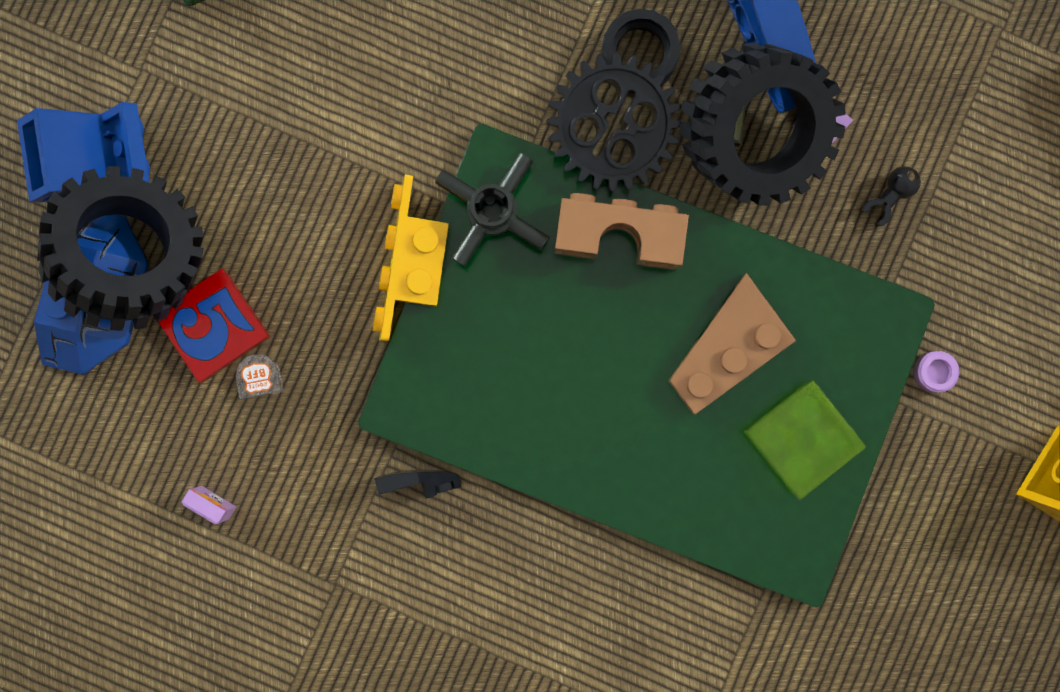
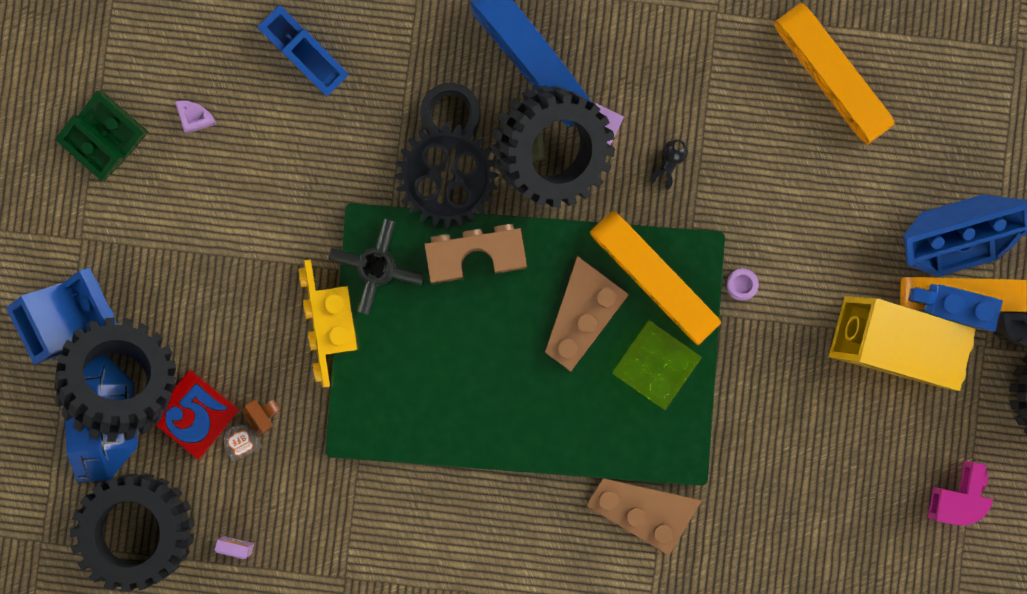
camera: 15 degrees left, 0 degrees up
(138, 439) = (172, 522): none -> black tyre
(290, 352) = (259, 417): none -> dark orange tile
(431, 480) = (393, 480): black slope -> none
(732, 618) = (645, 512): none -> medium nougat wing
(836, 329) = (655, 277): none -> light orange beam

